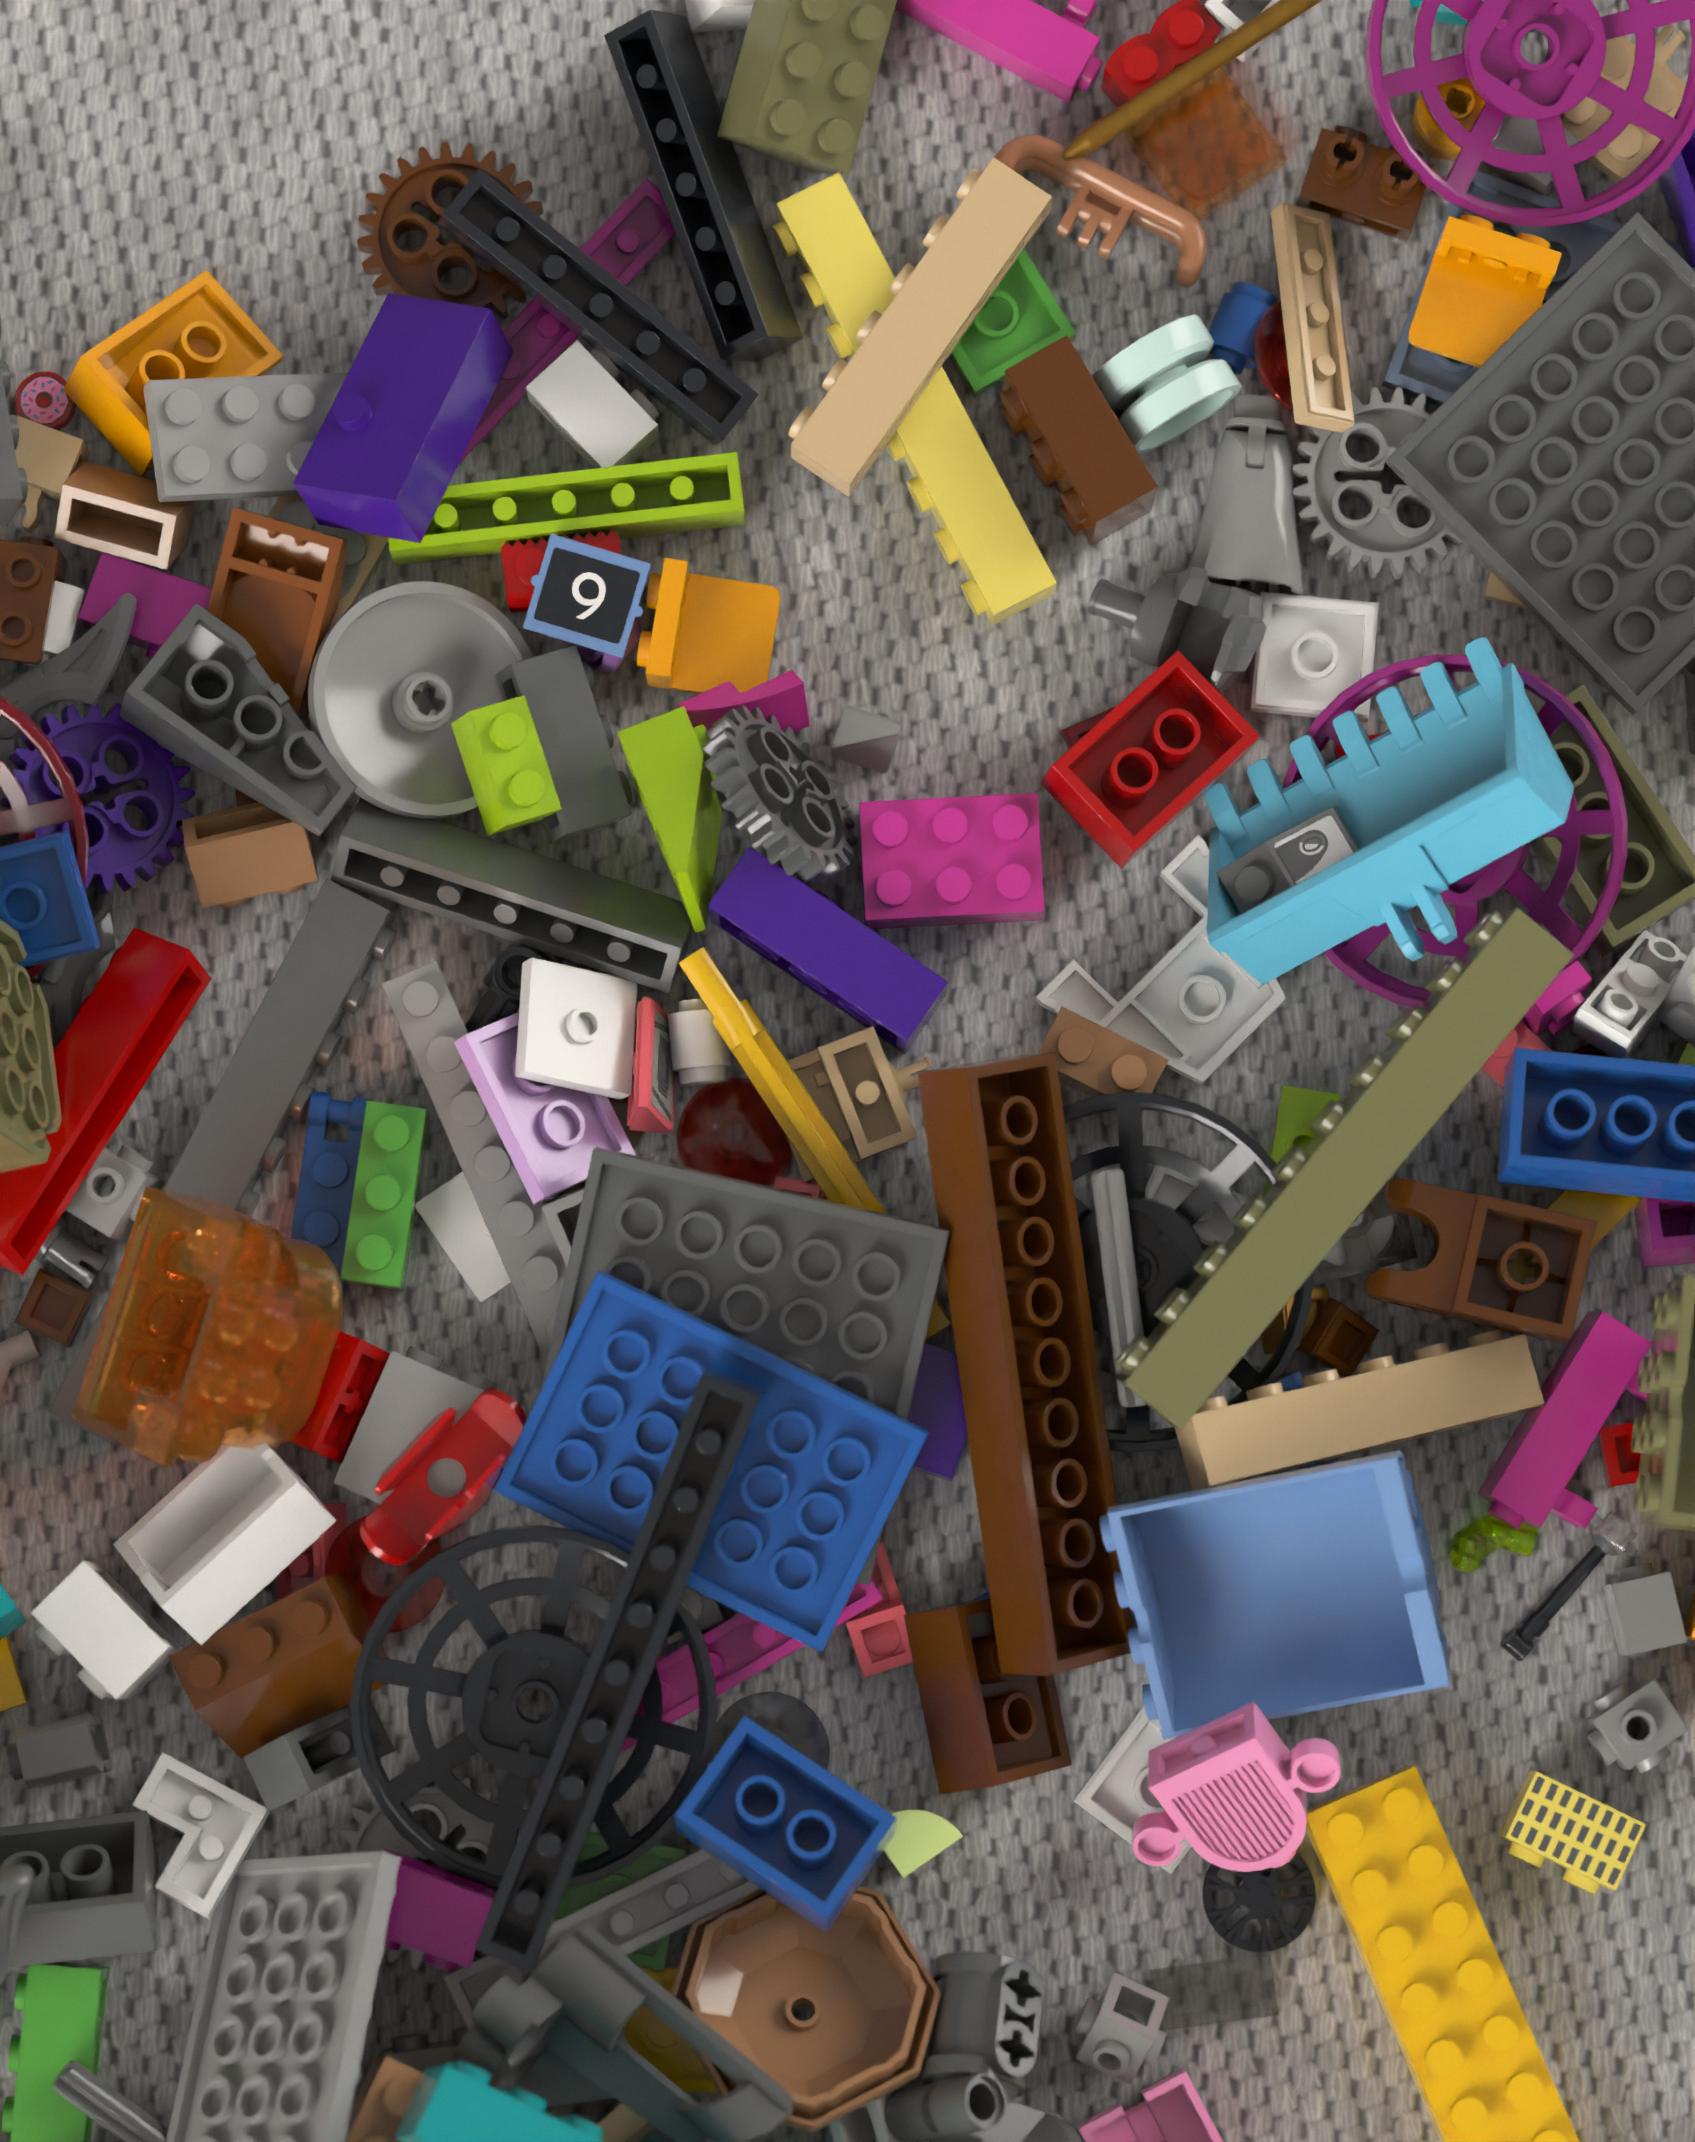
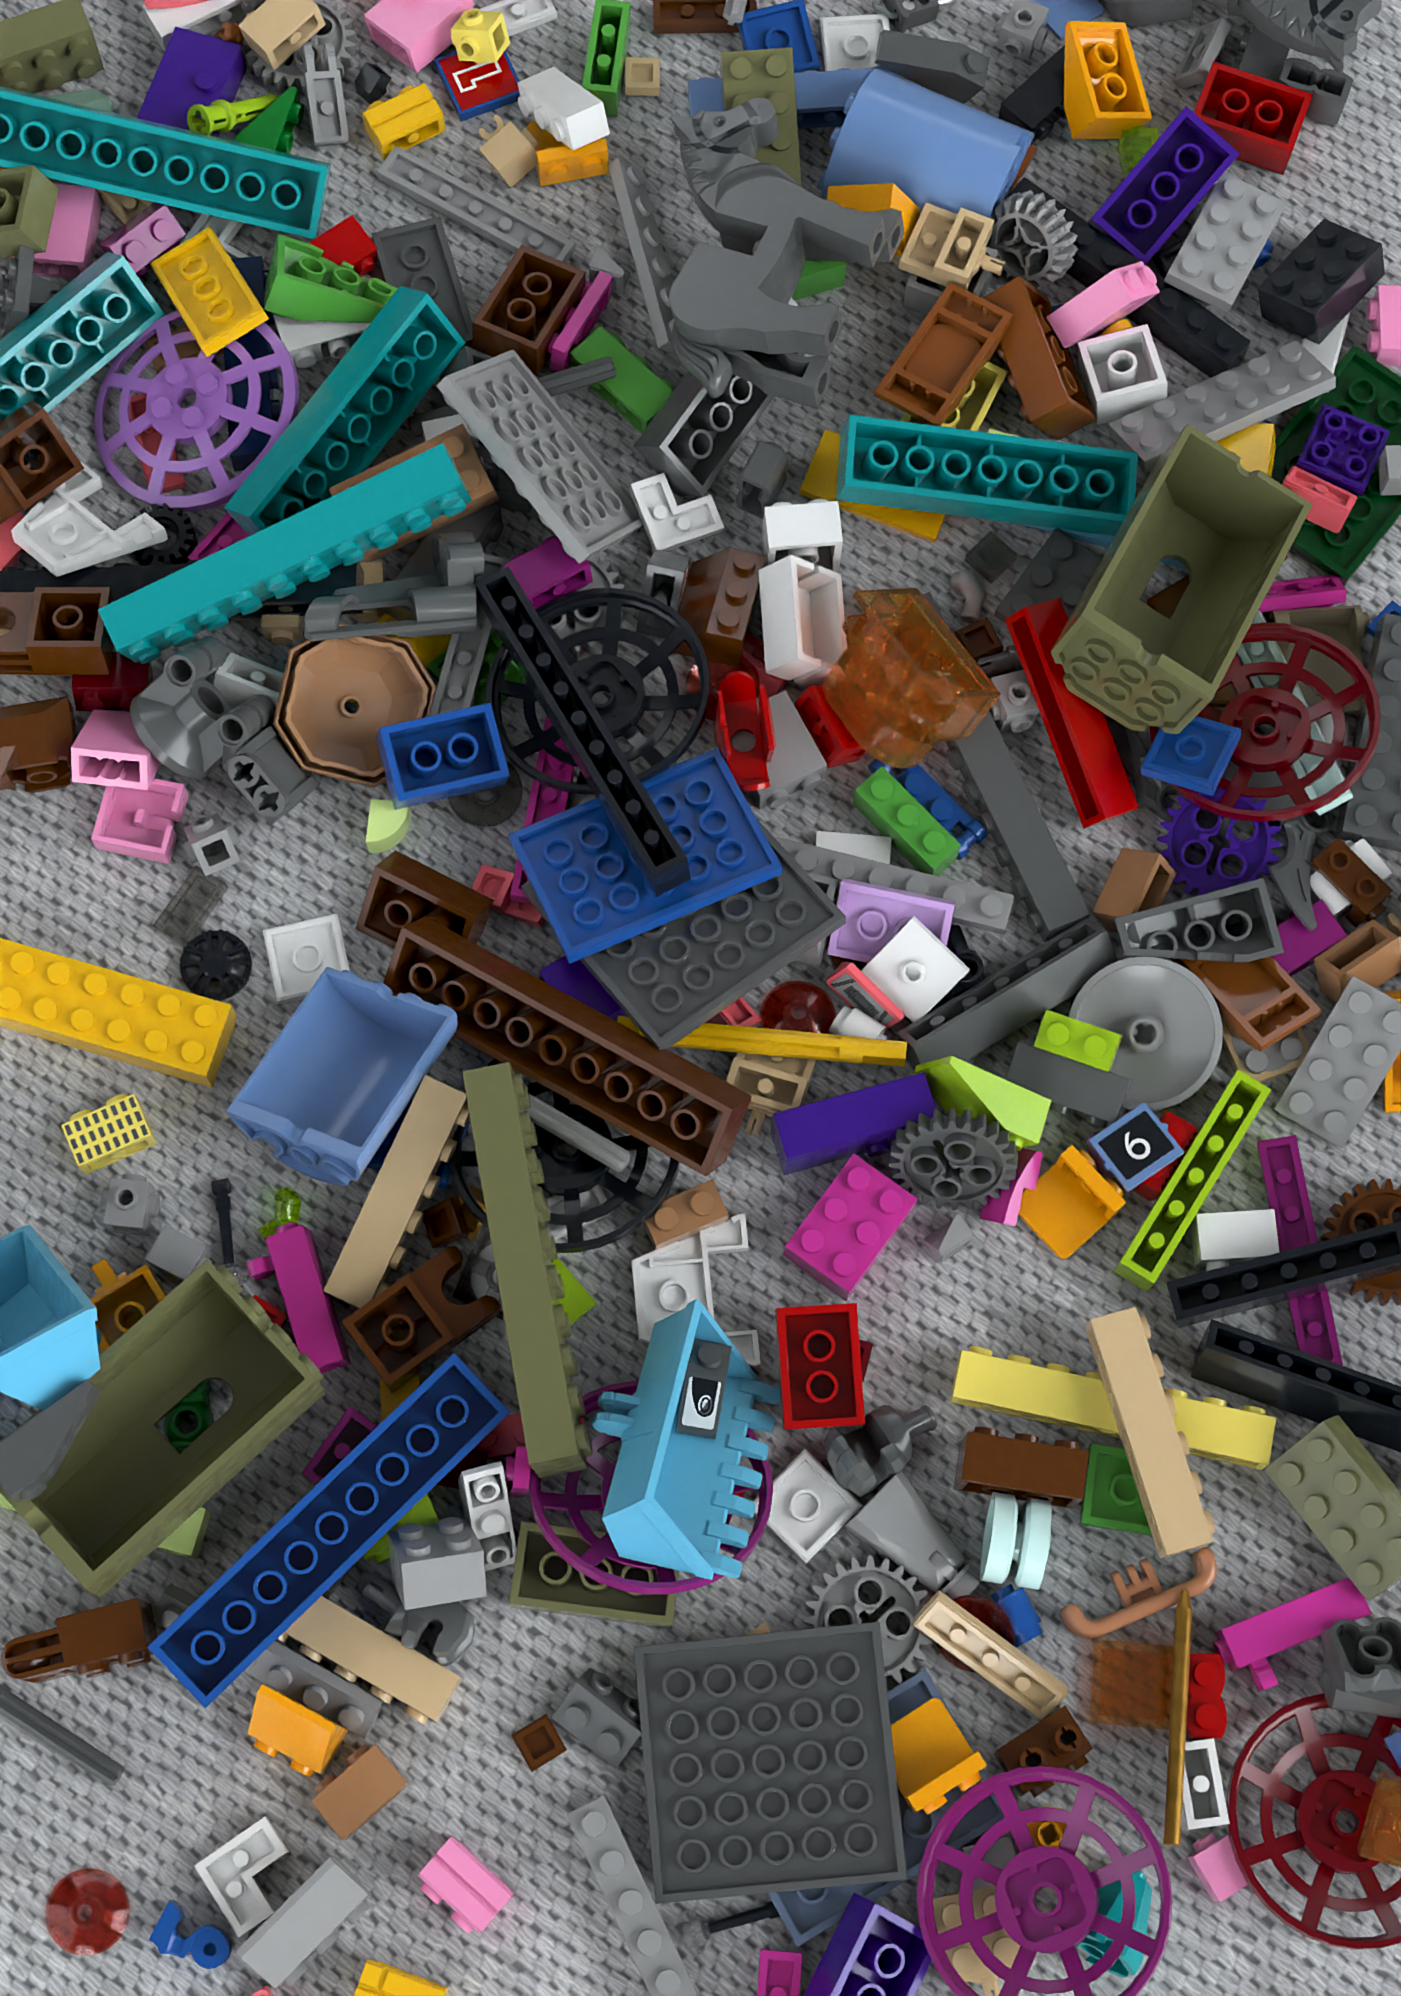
camera: 130 degrees right, 10 degrees down
(403, 417) = (1304, 1128): dark purple brick -> none
(1233, 1793) = (272, 975): bright pink piece -> none

